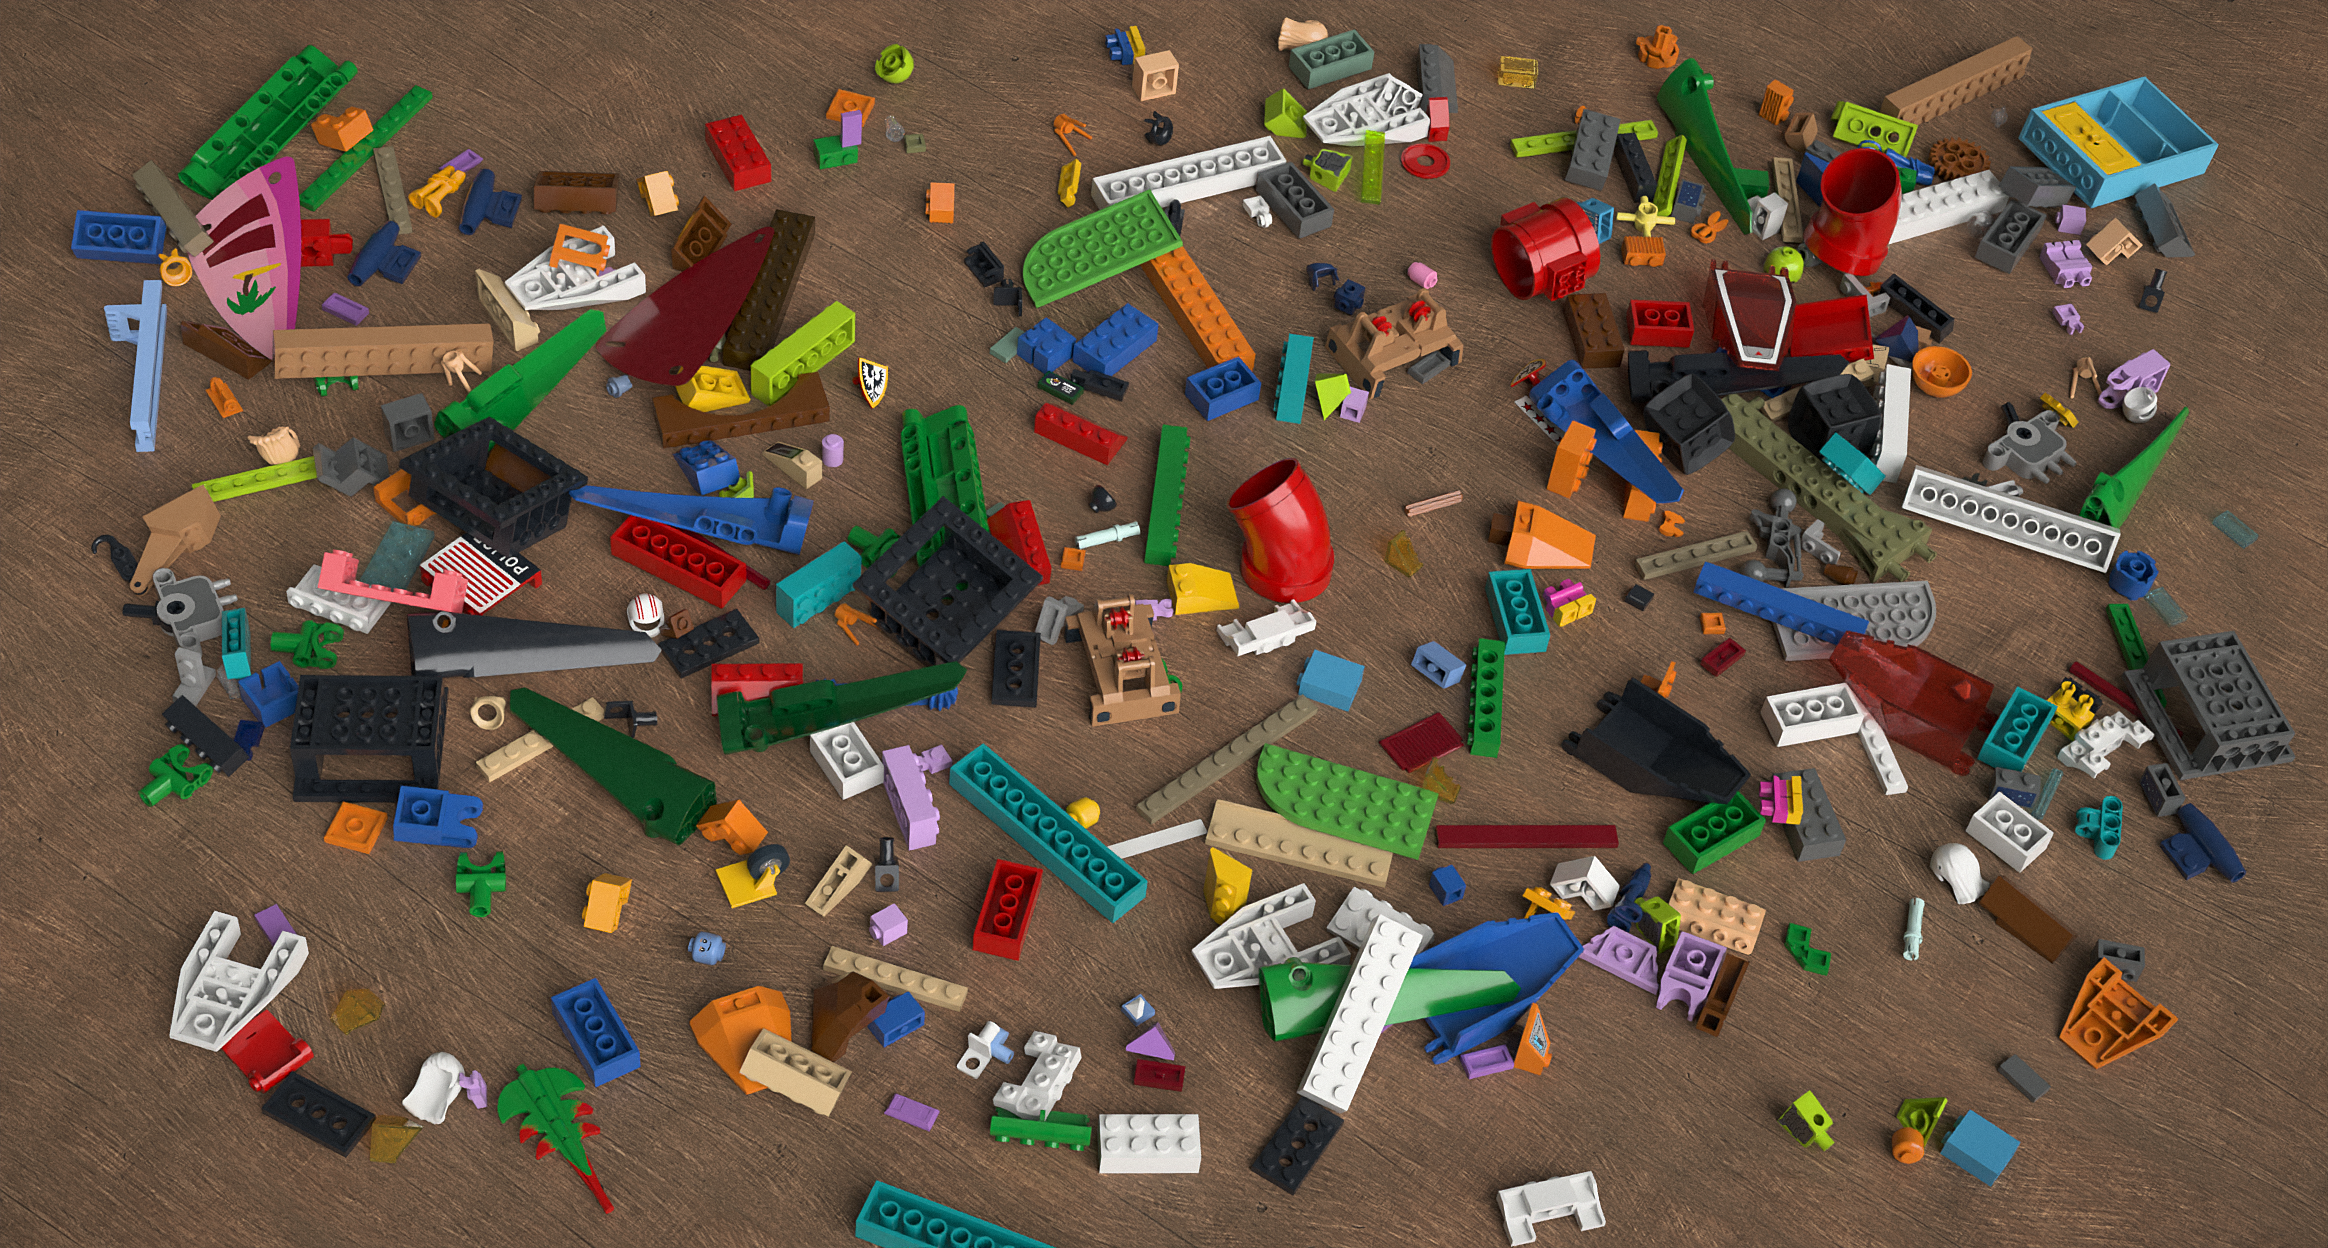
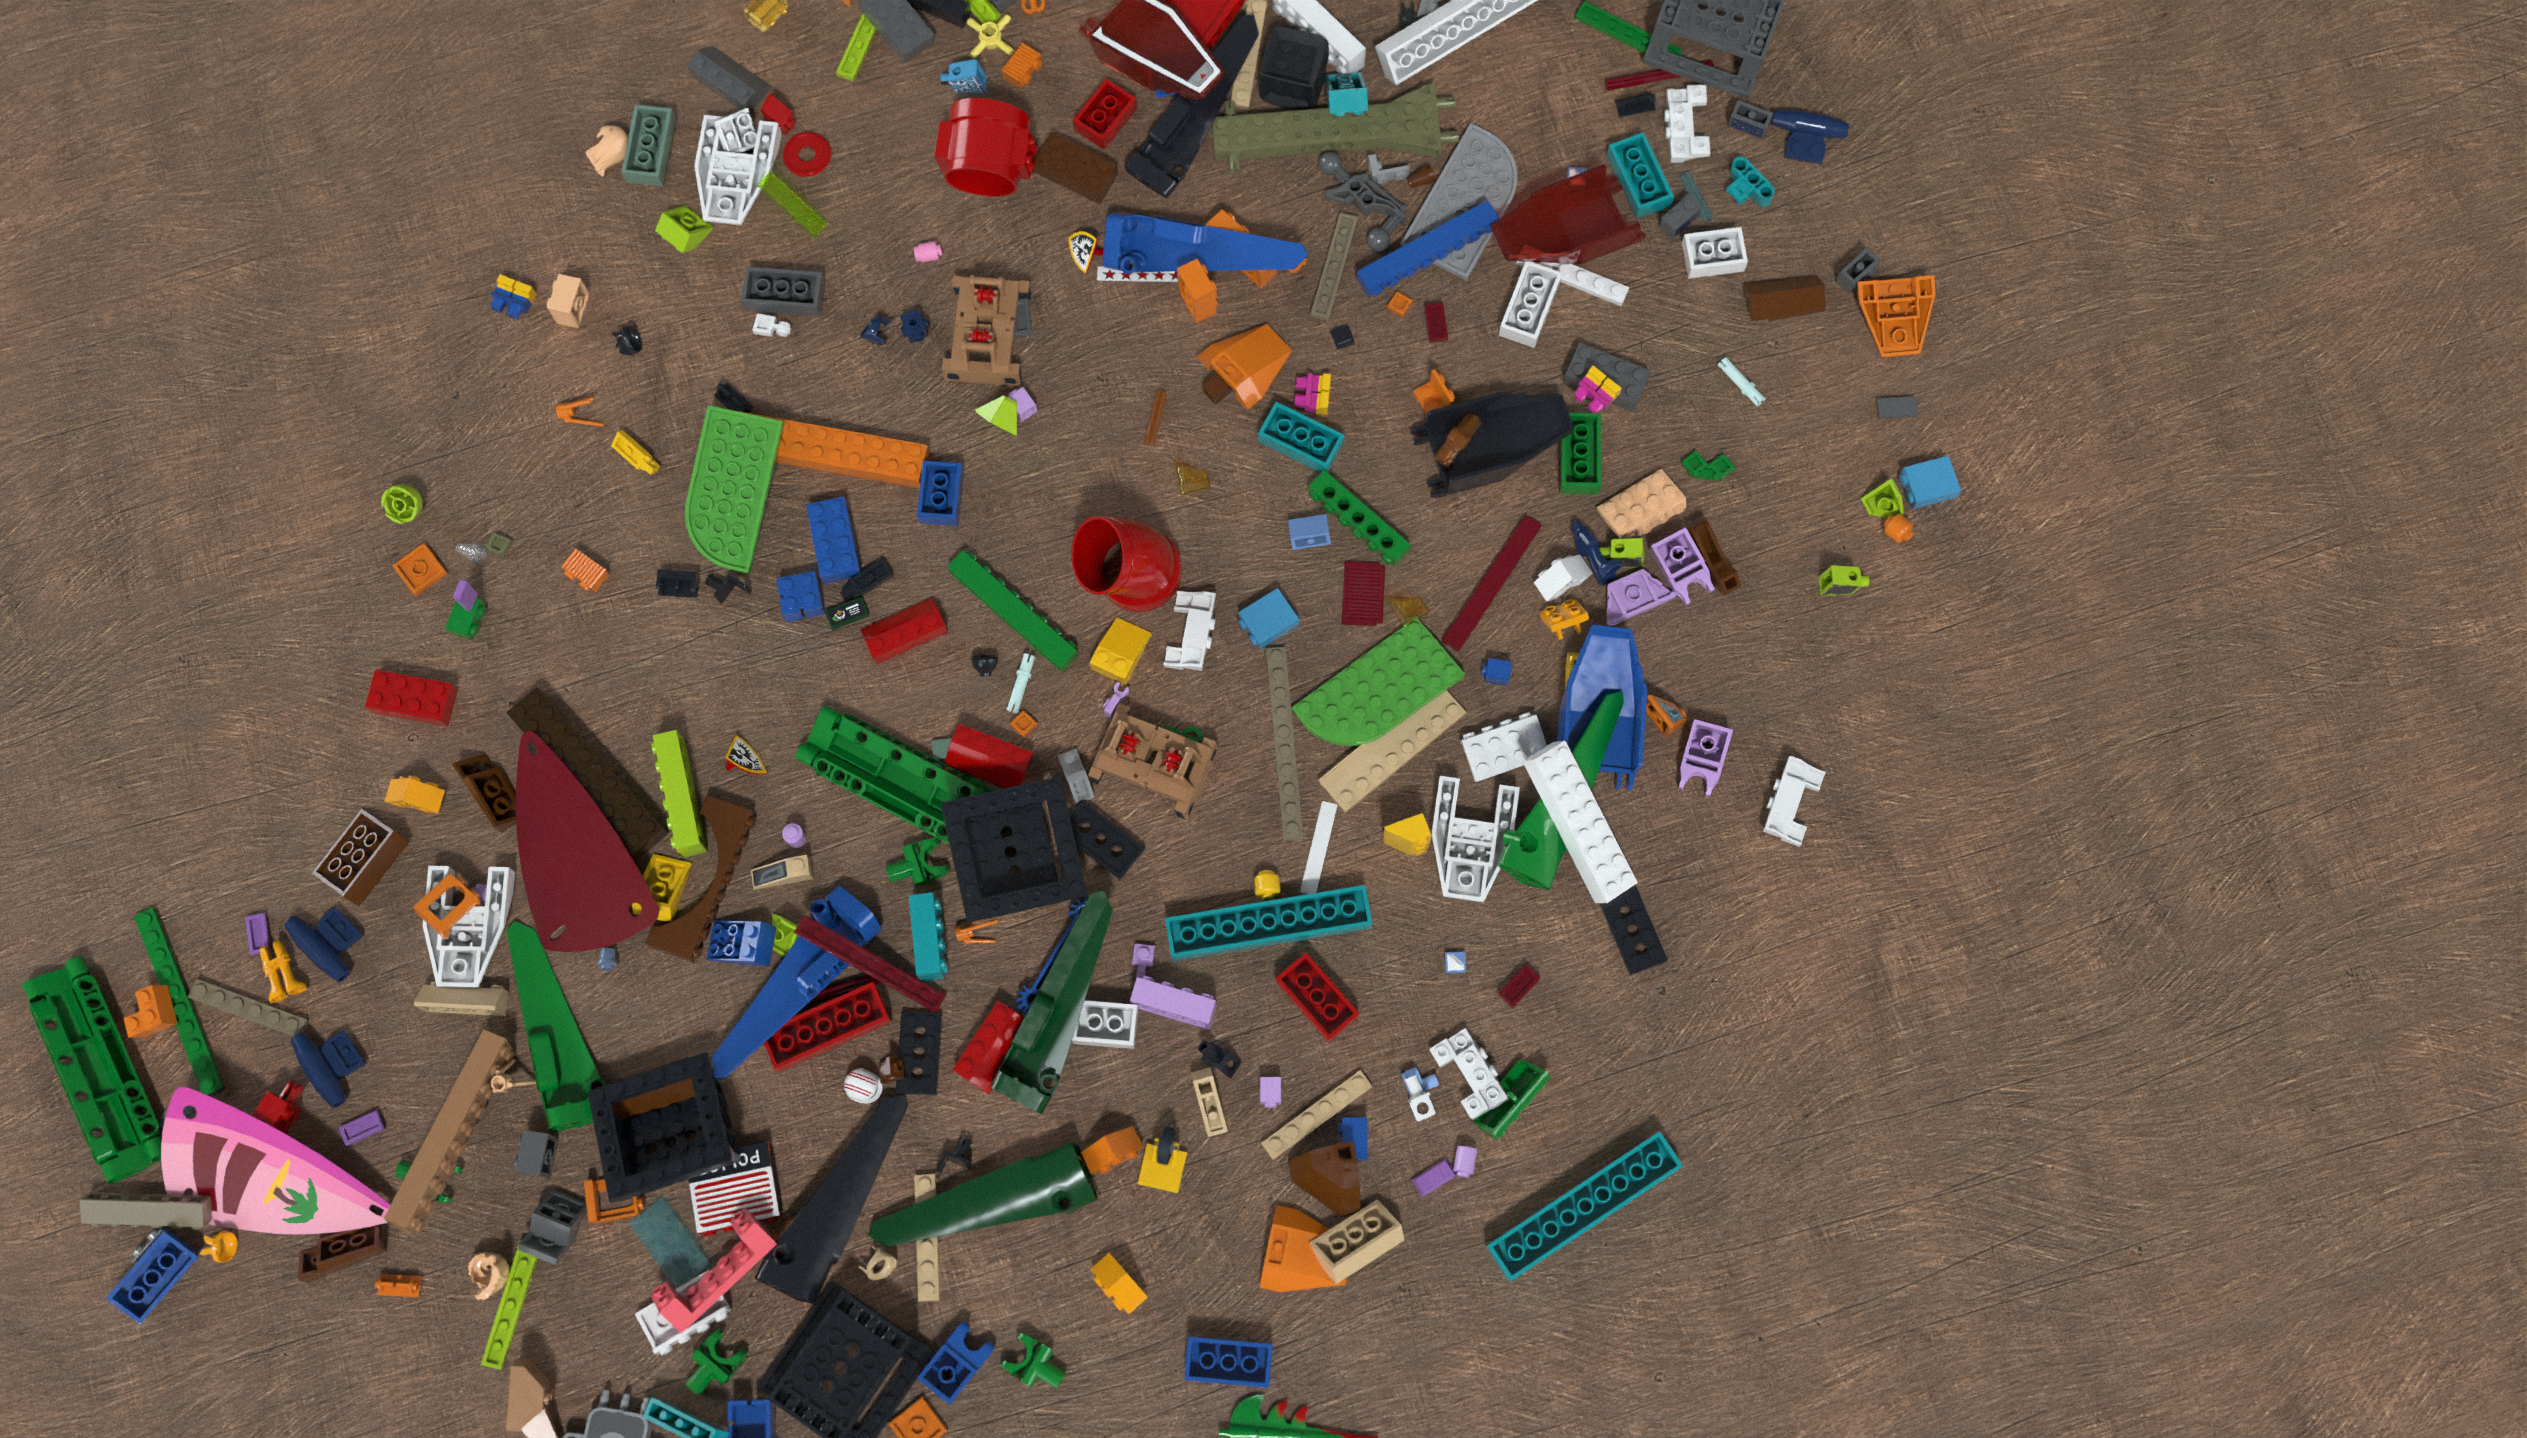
camera: 45 degrees left, 25 degrees up
(149, 357) = (279, 1306): light blue piece -> none
(707, 948) = (1206, 1235): medium blue head -> none
(760, 553) = (869, 963): none -> dark red tile
(948, 1125) = (1465, 1161): none -> lavender brick
(1007, 346) = (775, 621): sand green tile -> none
(1149, 1143) = (1570, 1033): white brick -> none
(1152, 1043) = (1490, 973): medium lavender slope -> none
(1191, 175) = (700, 357): white brick -> none
(1293, 378) = (970, 432): teal brick -> none
(1328, 168) = (764, 237): torso -> none
(1487, 1061) = (1653, 752): medium lavender tile -> none
(1524, 1101) = (1702, 761): none -> lavender brick
(1632, 726) = (1458, 439): none -> clear orange piece
(1690, 423) = (1228, 179): black piece -> none
(1961, 870) = (1721, 312): white piece -> none
(2070, 714) = (1650, 123): yellow brick -> none

